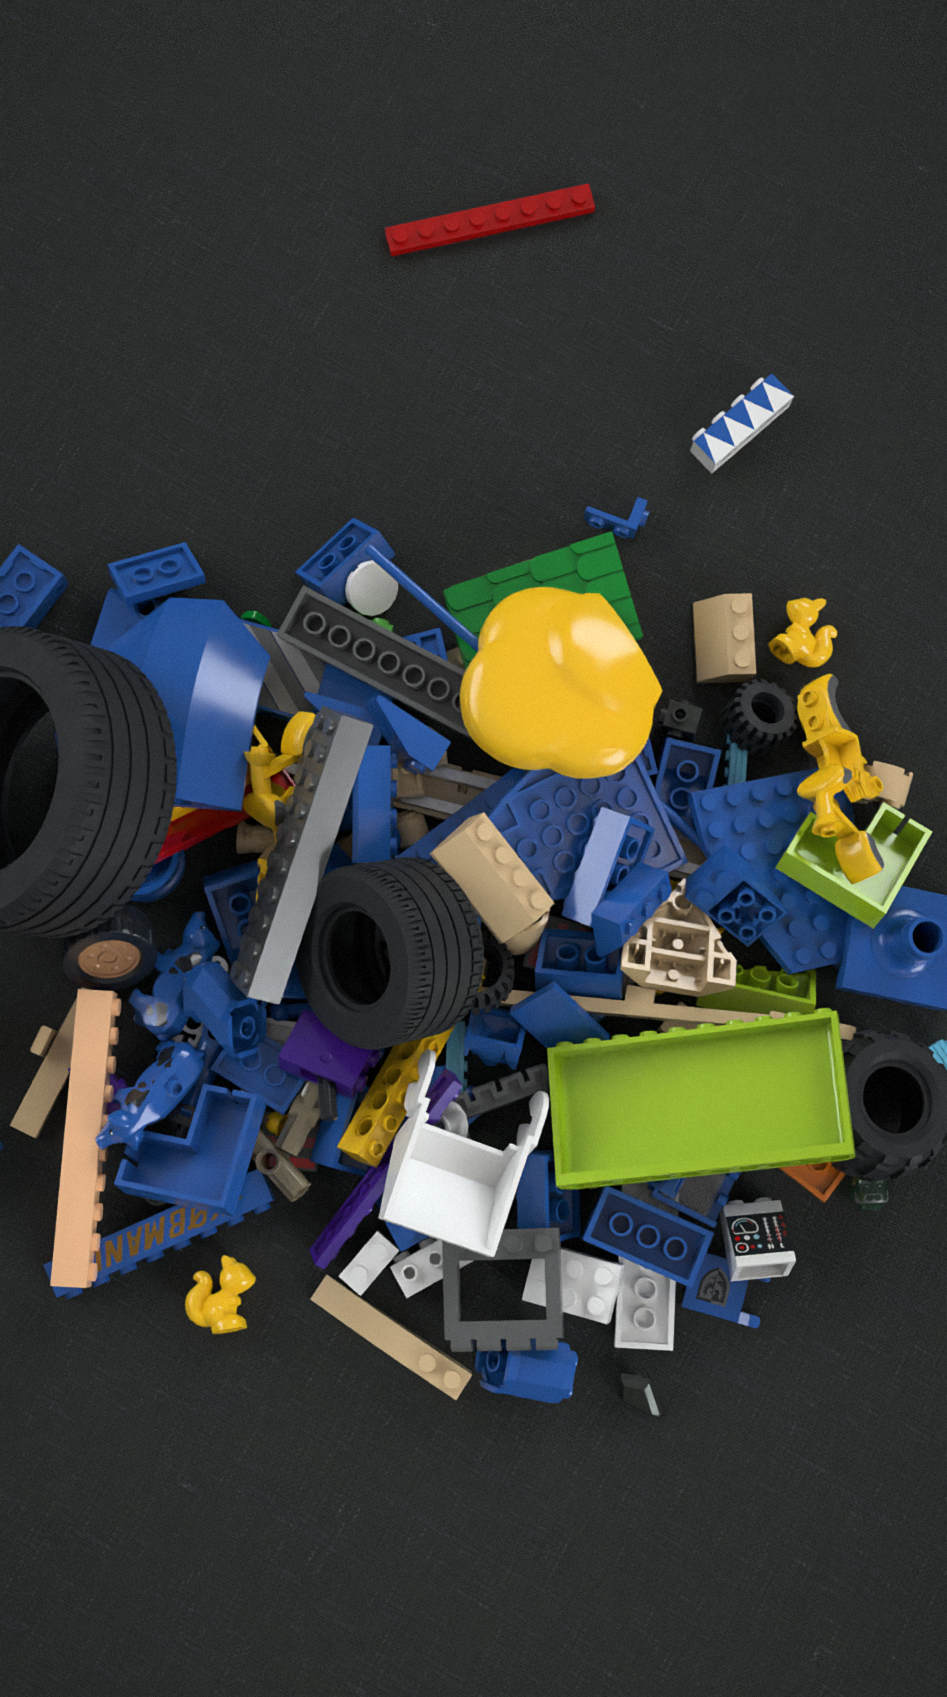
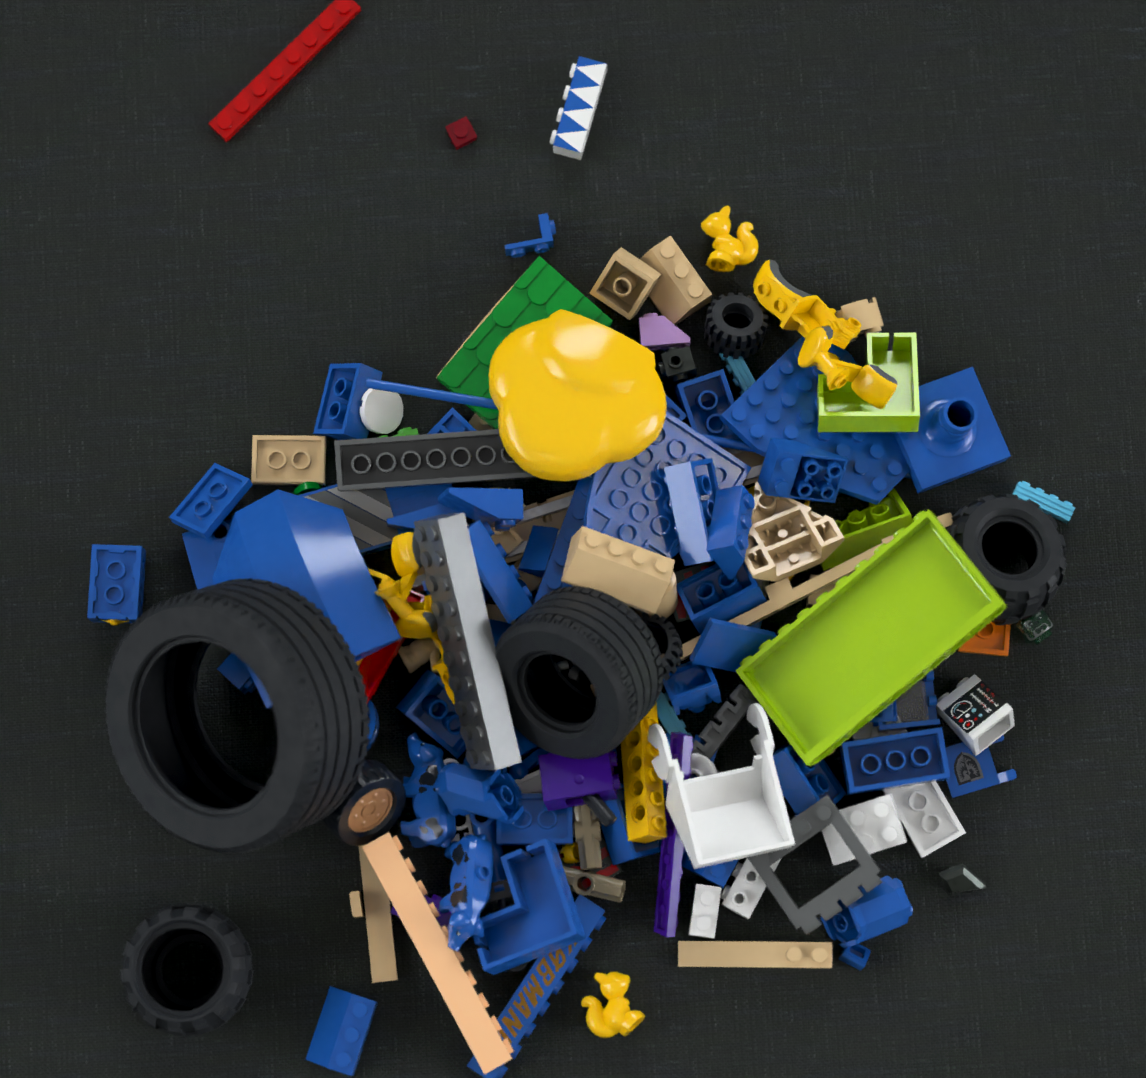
camera: 25 degrees left, 0 degrees up
(256, 582) = (288, 459): none -> tan tile
(432, 812) = (538, 550): none -> blue slope
(488, 1402) = (855, 956): none -> blue slope
(614, 379) = (461, 133): none -> dark red plate
(679, 612) = (625, 283): none -> tan brick
(682, 681) = (660, 333): none -> lavender slope

